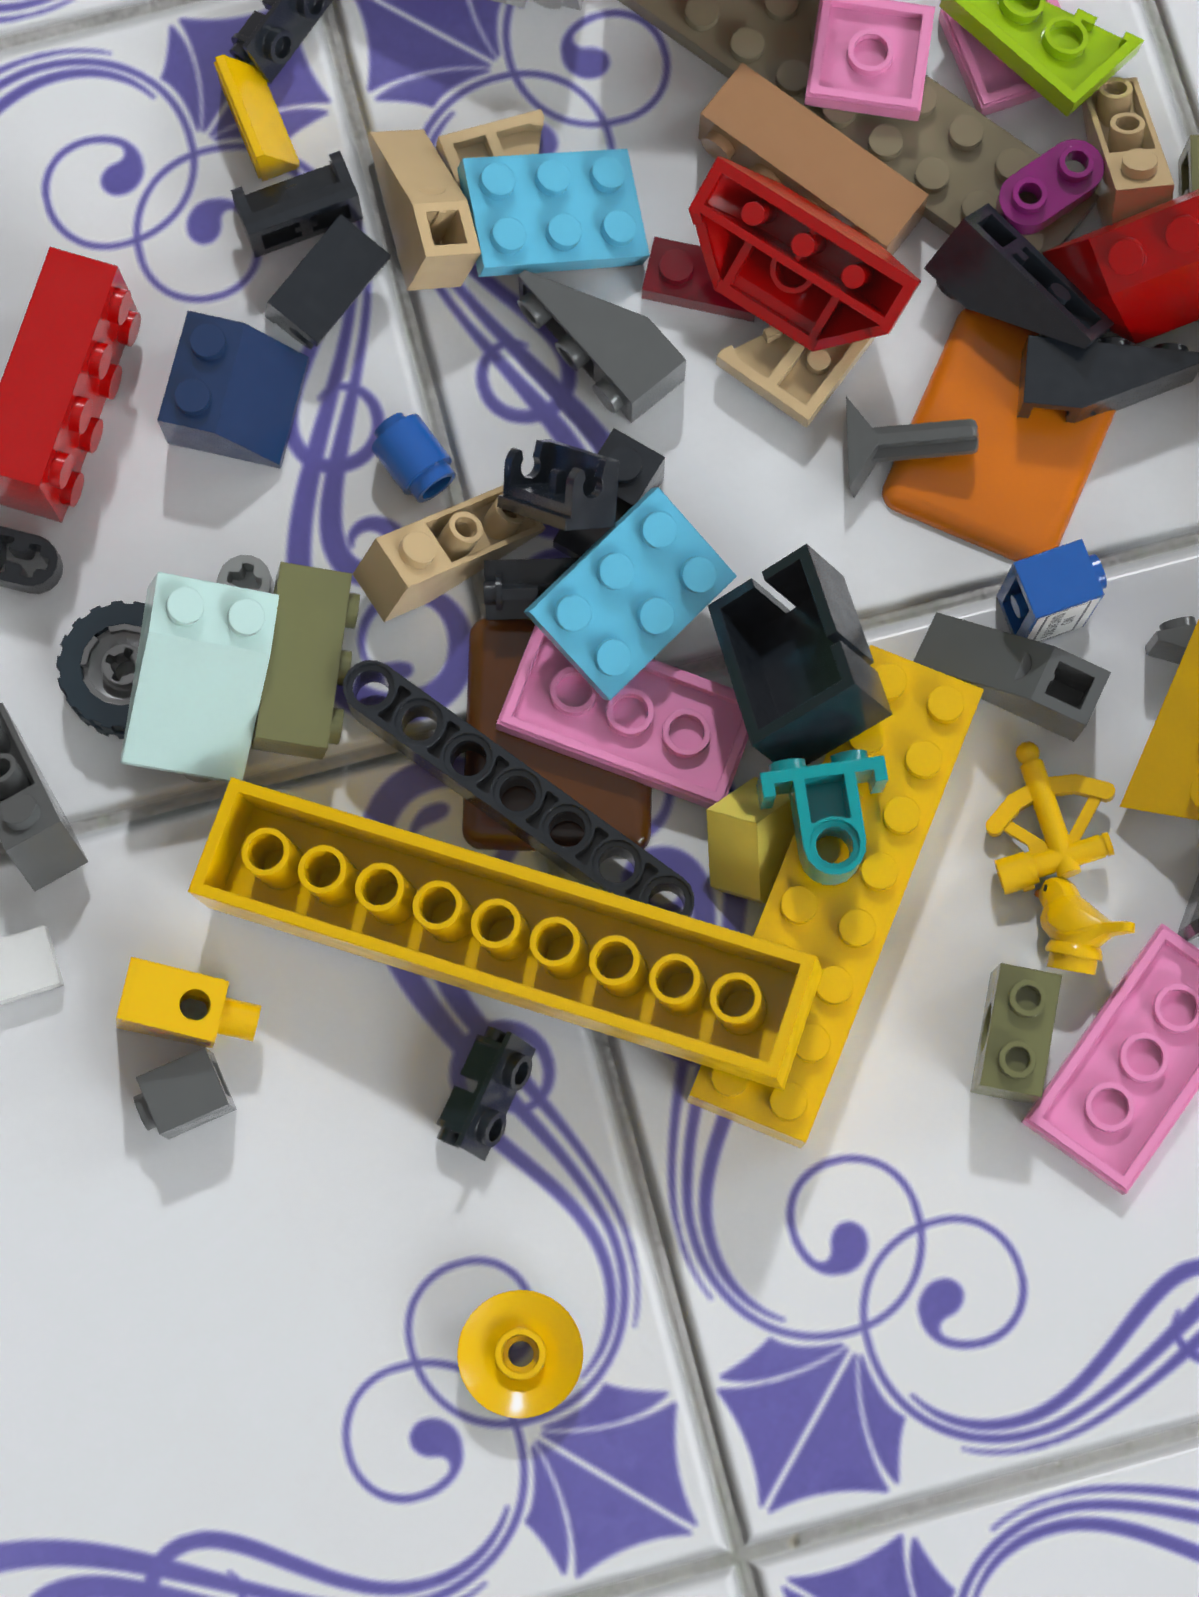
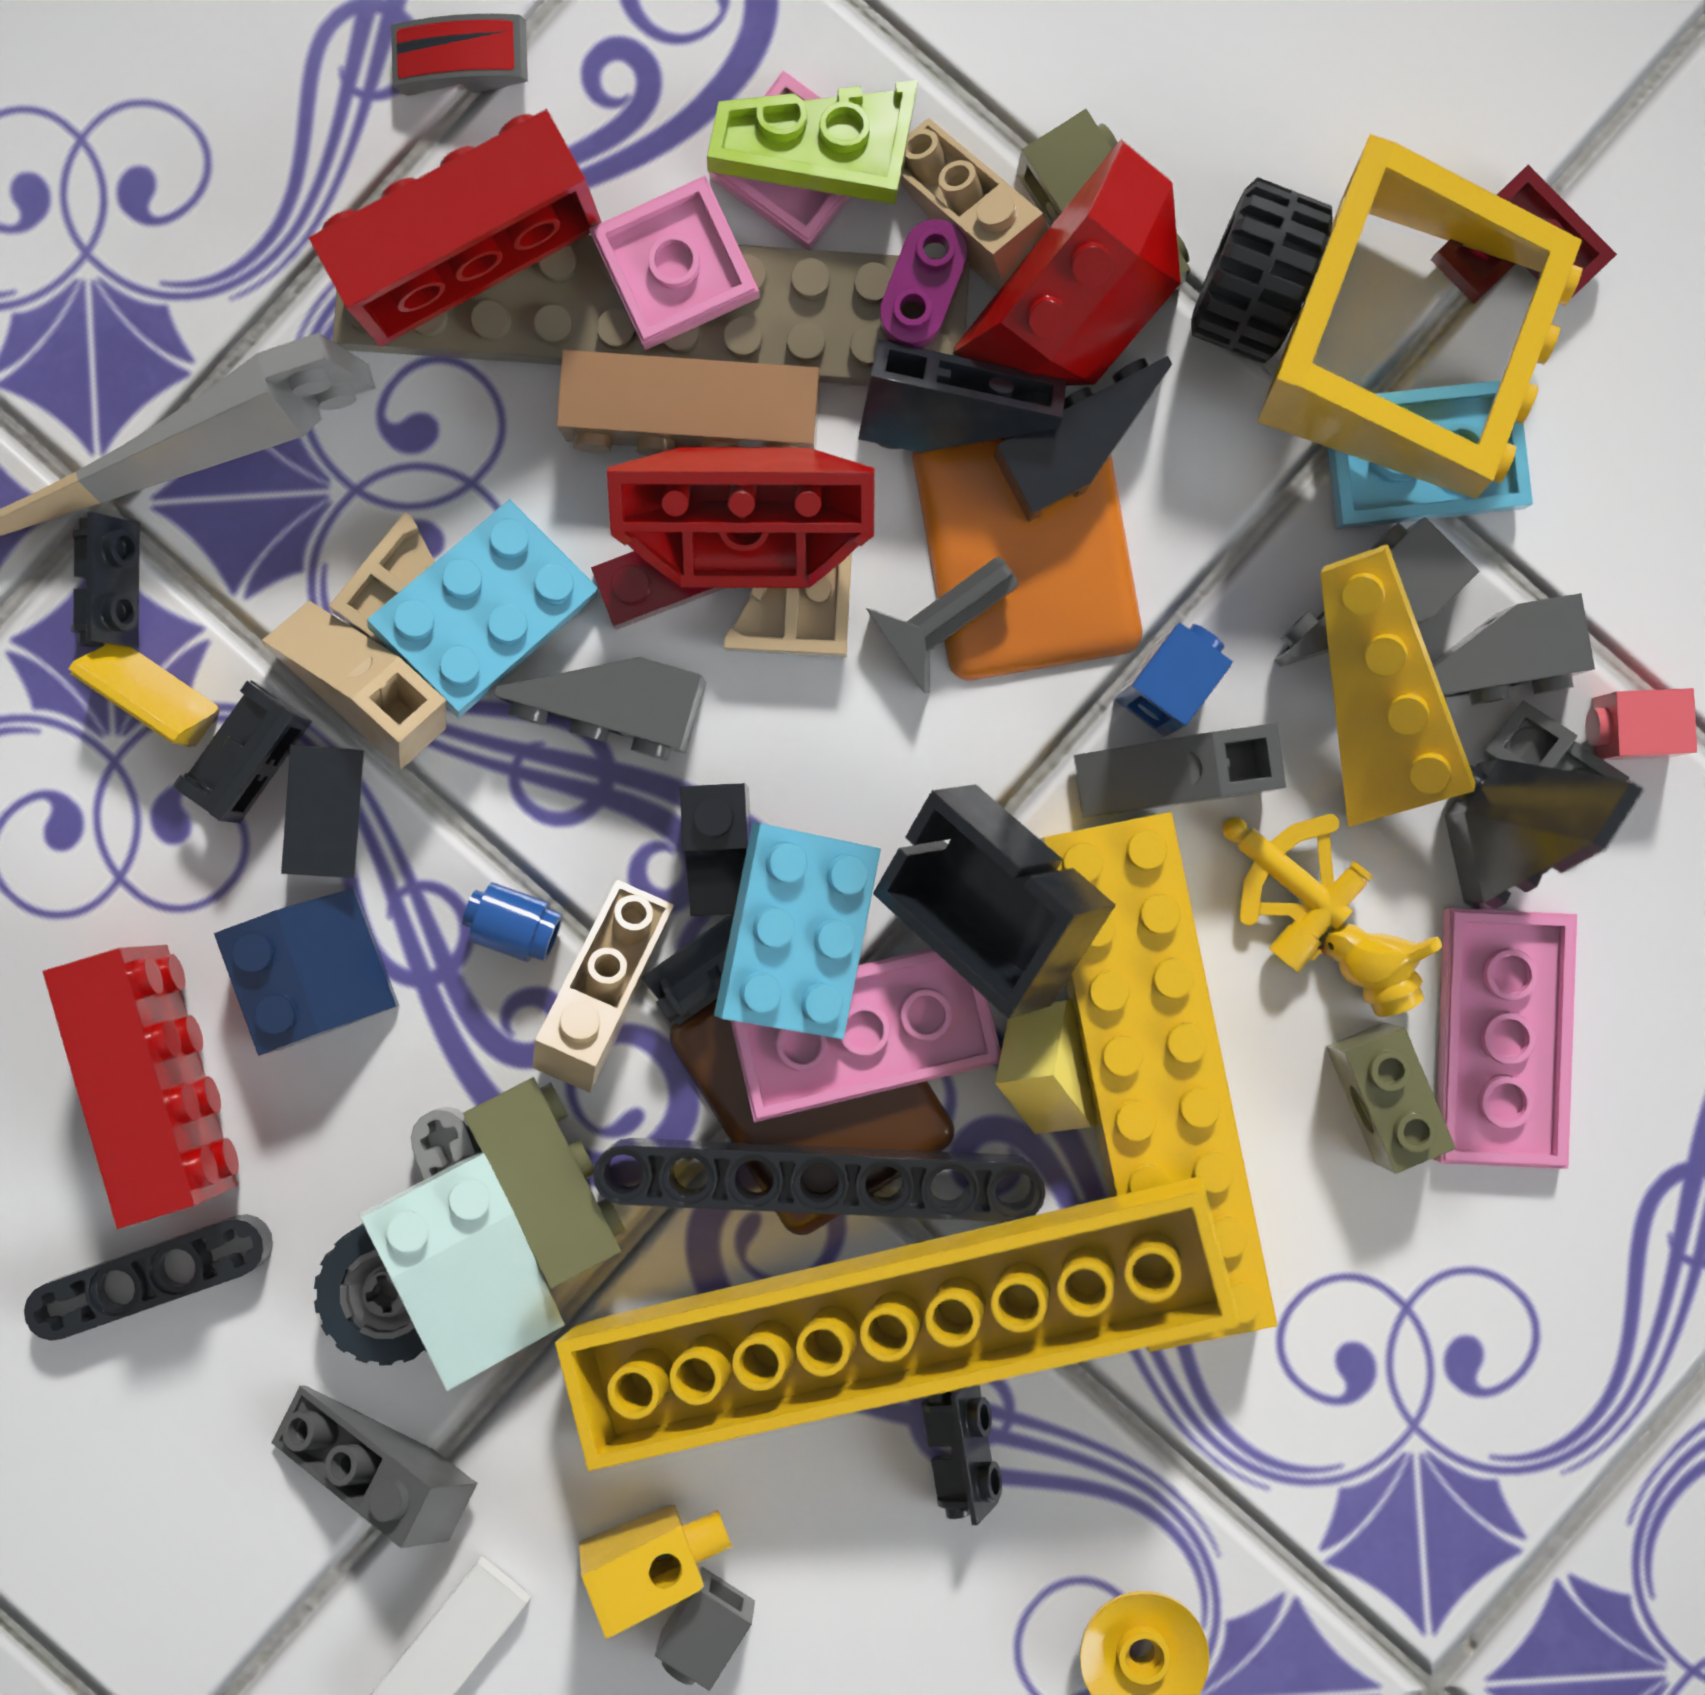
camera: 30 degrees left, 10 degrees up
(565, 487) = (672, 877): black hinge -> none
(825, 804) = (1109, 1025): teal pin -> none

